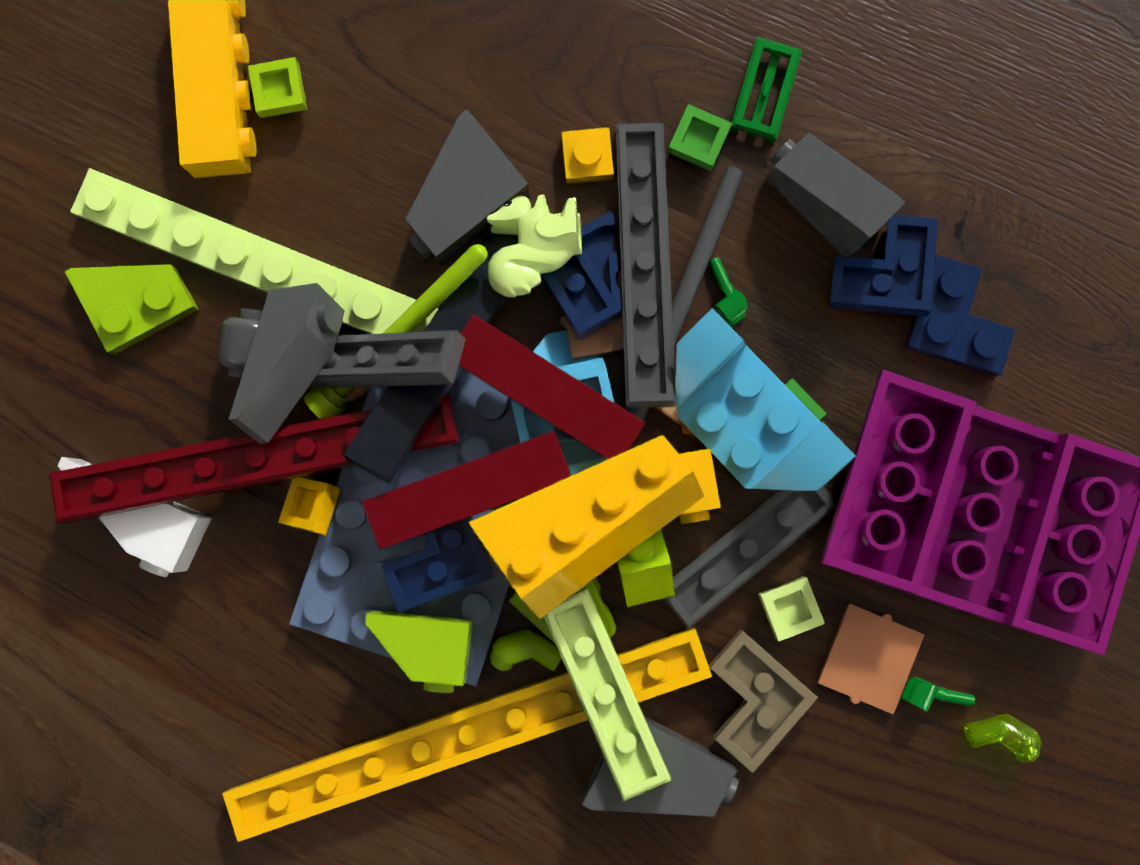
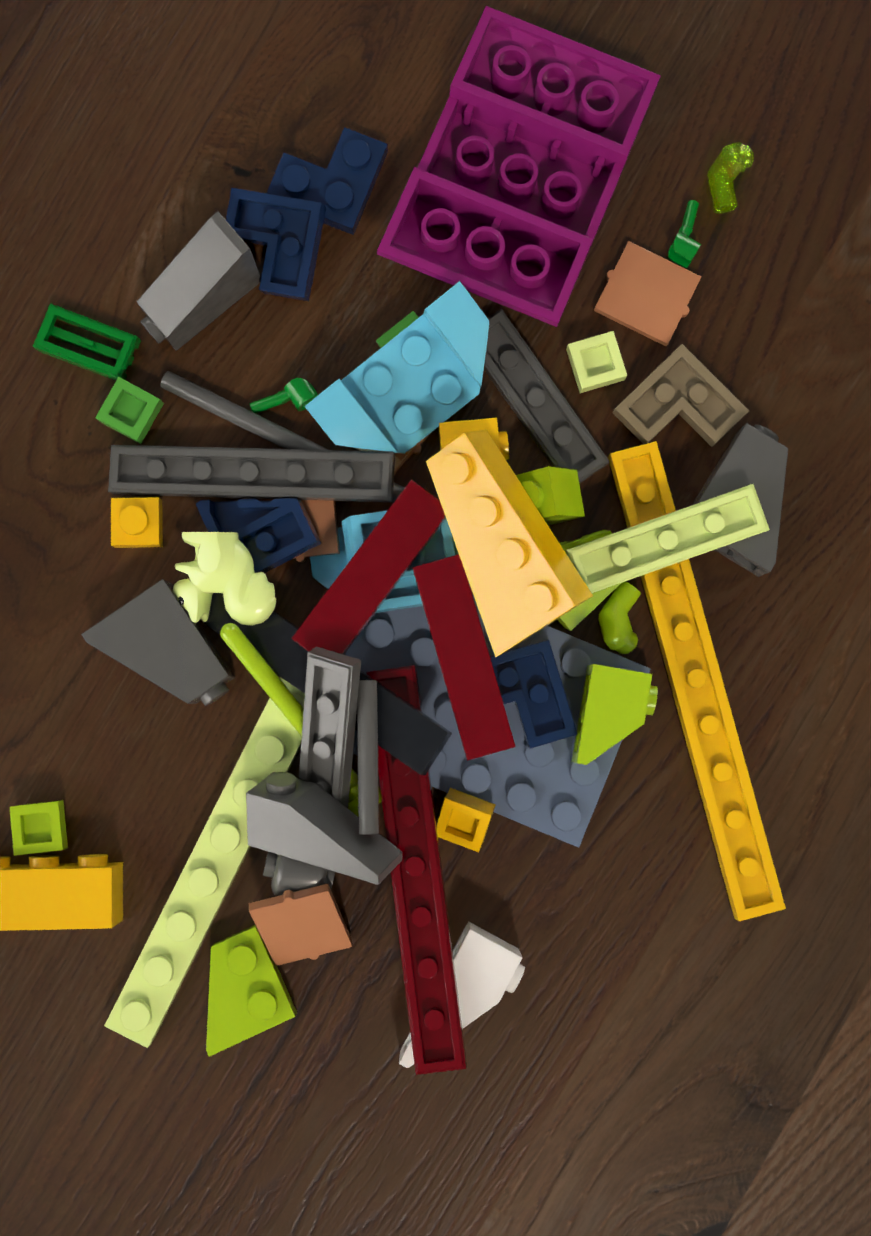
camera: 90 degrees left, 0 degrees up
(195, 349) = (300, 924): none -> nougat piece
(358, 400) = (368, 757): none -> dark grey bar

